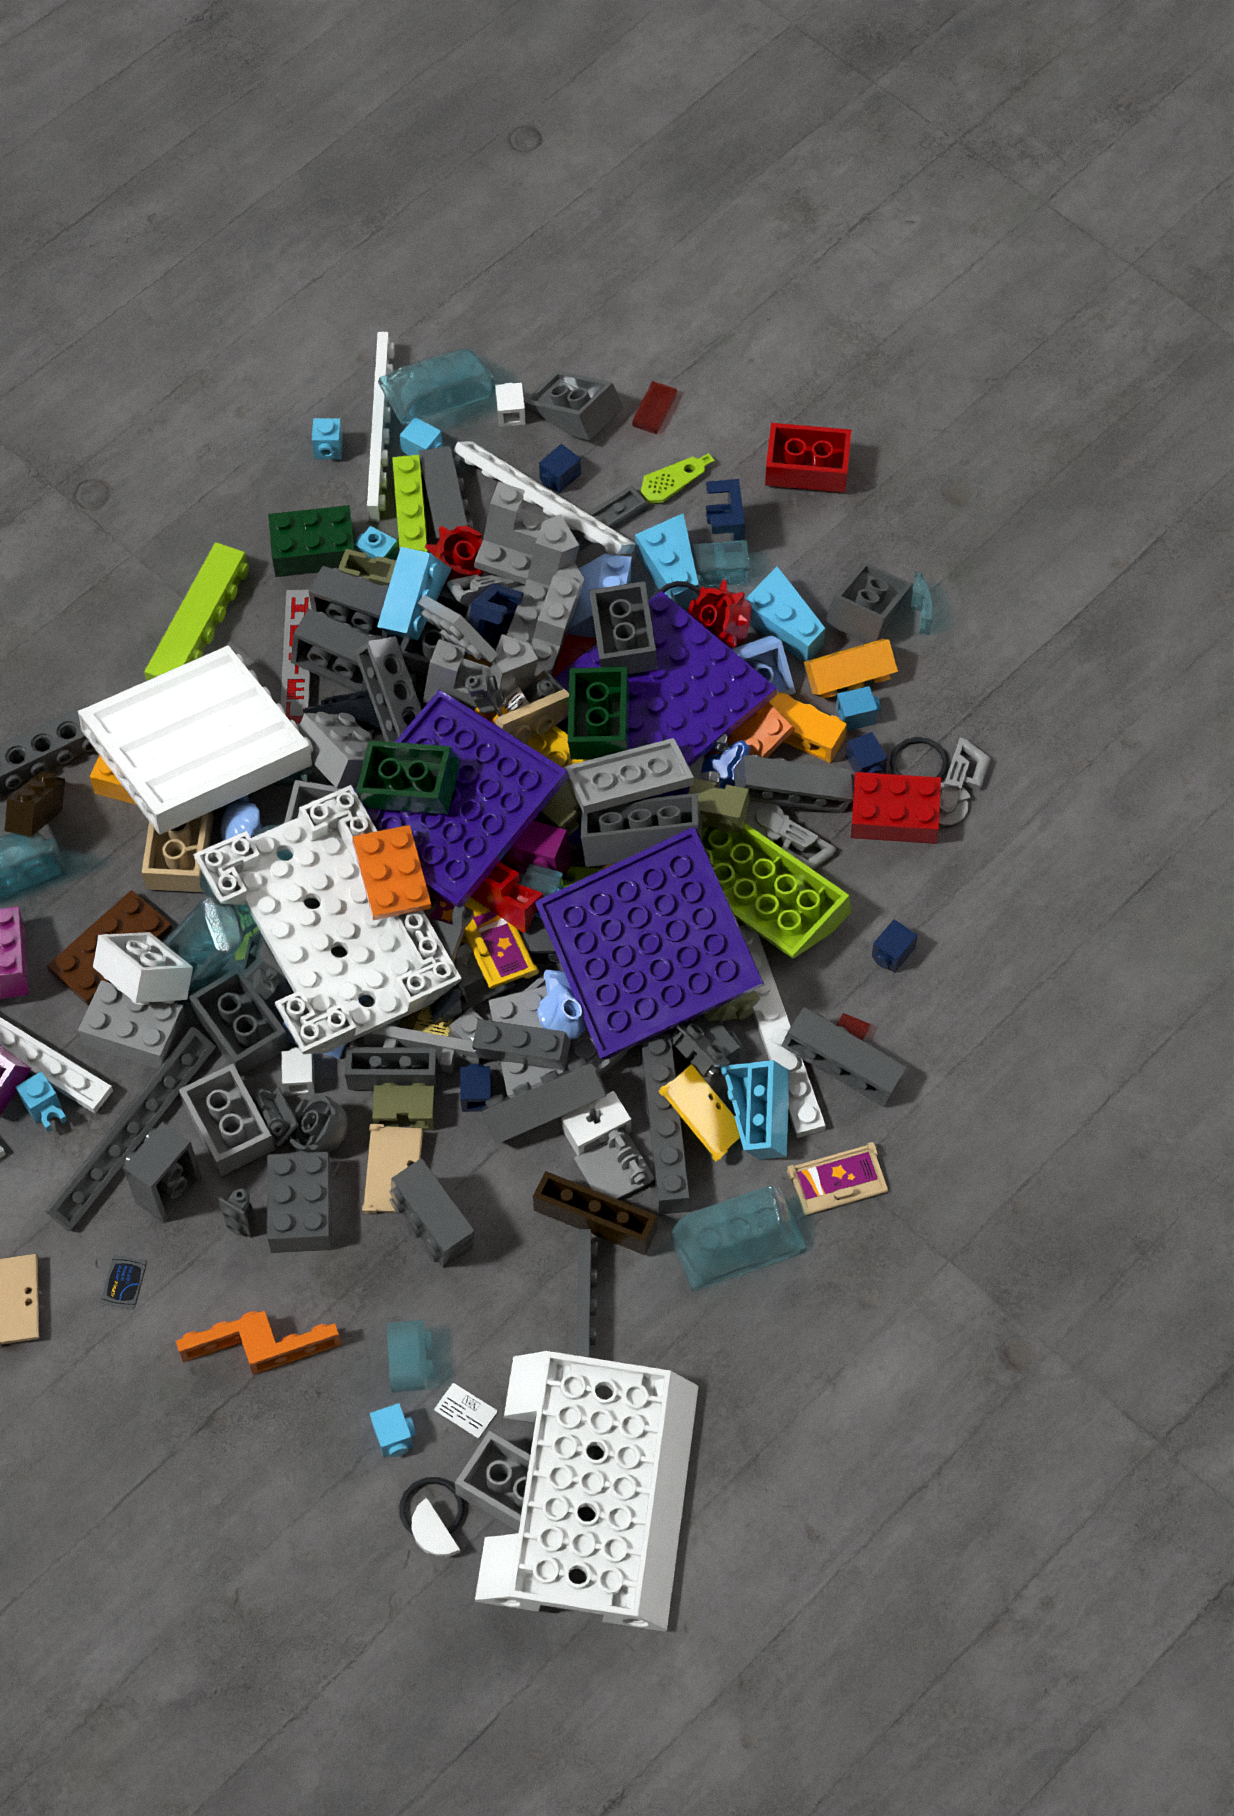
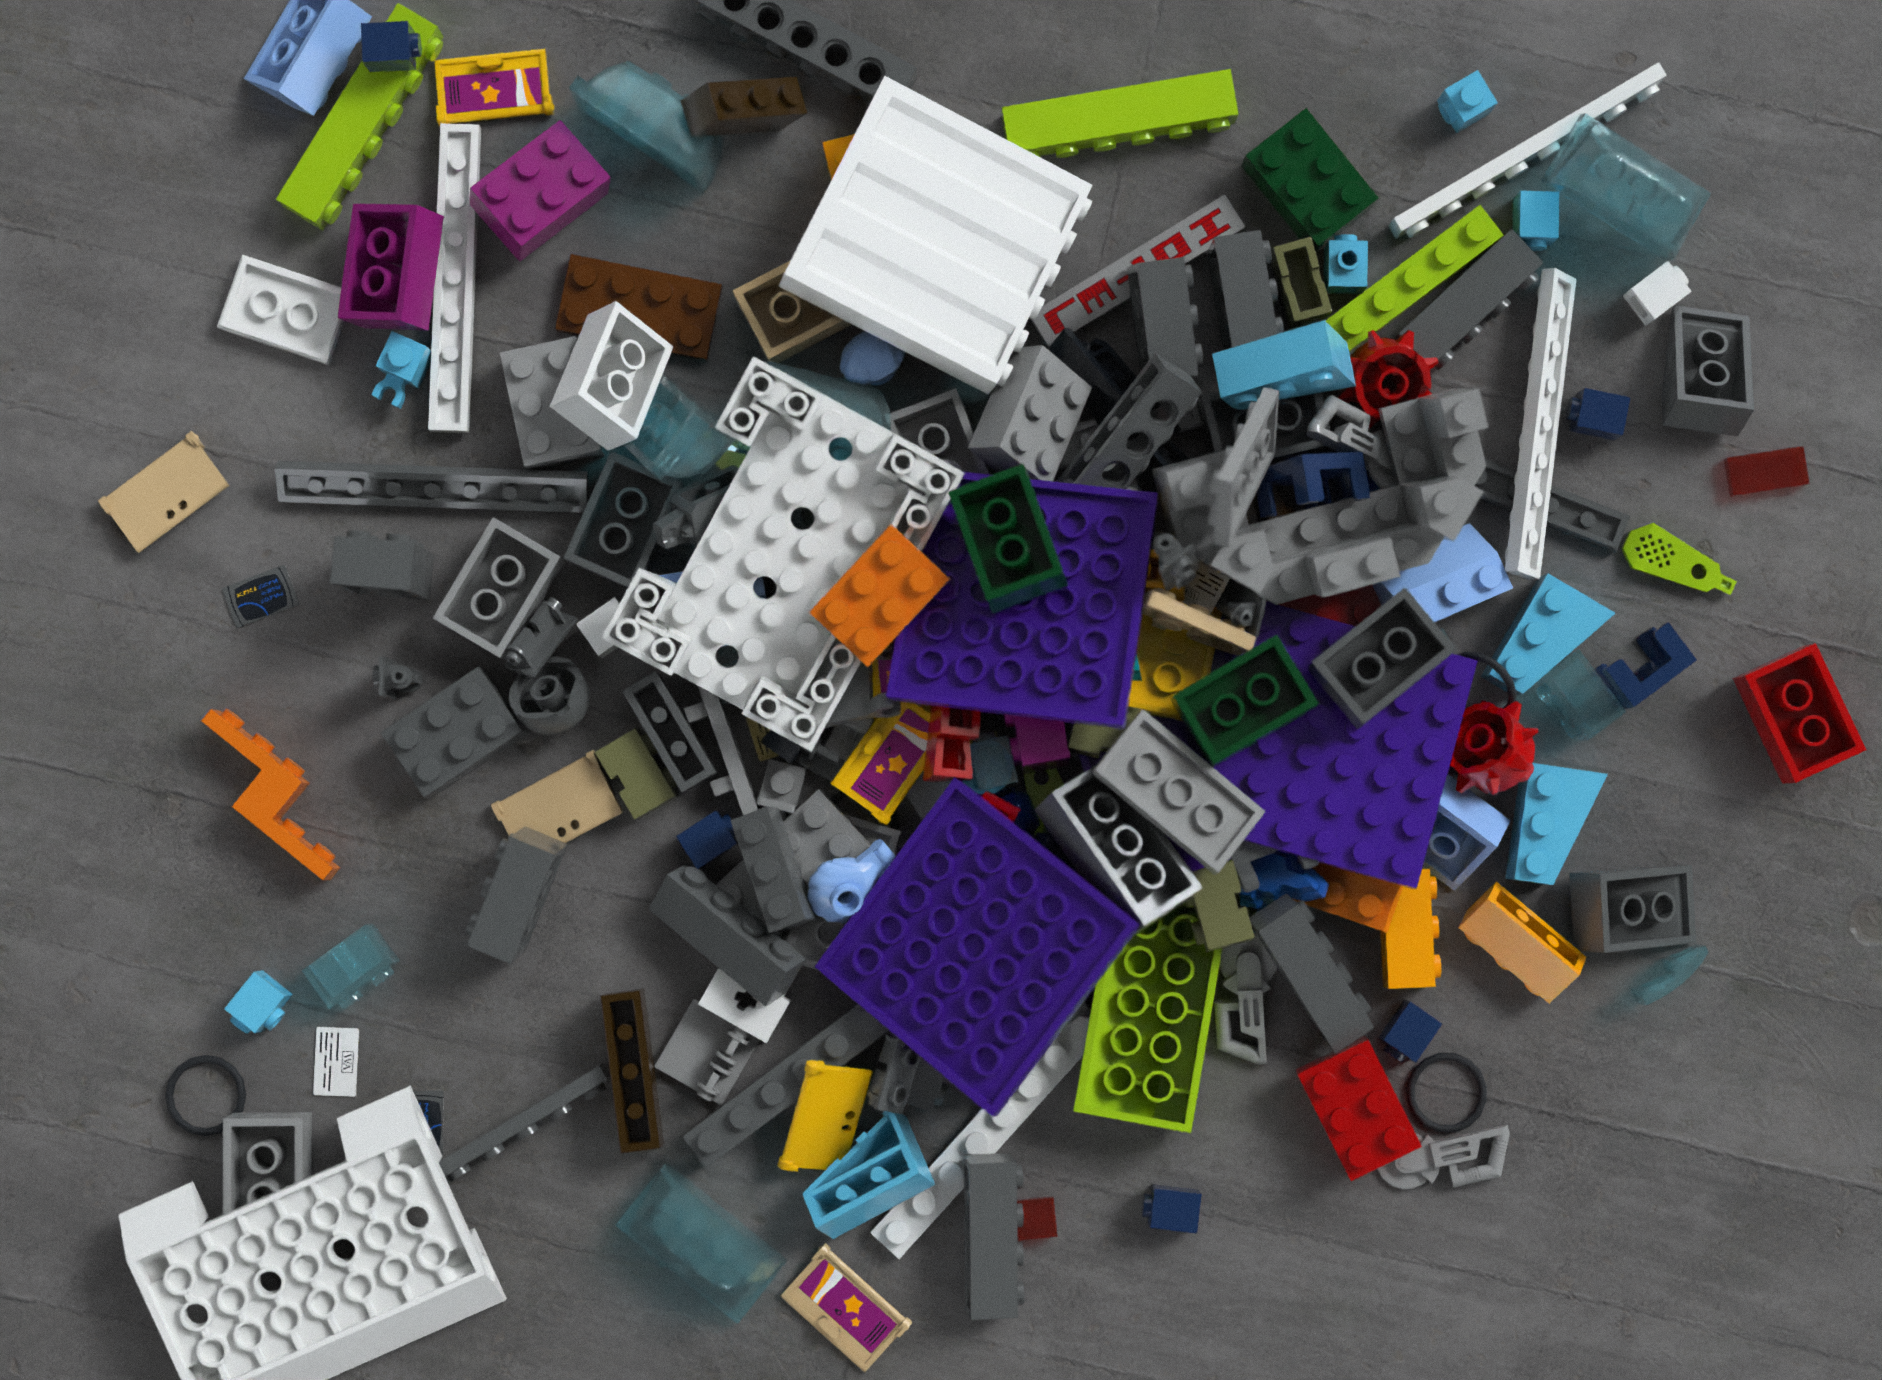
camera: 55 degrees right, 25 degrees up
(431, 1533) = (173, 1115): white tile -> none
(858, 708) = (1472, 982): dark azure brick -> none

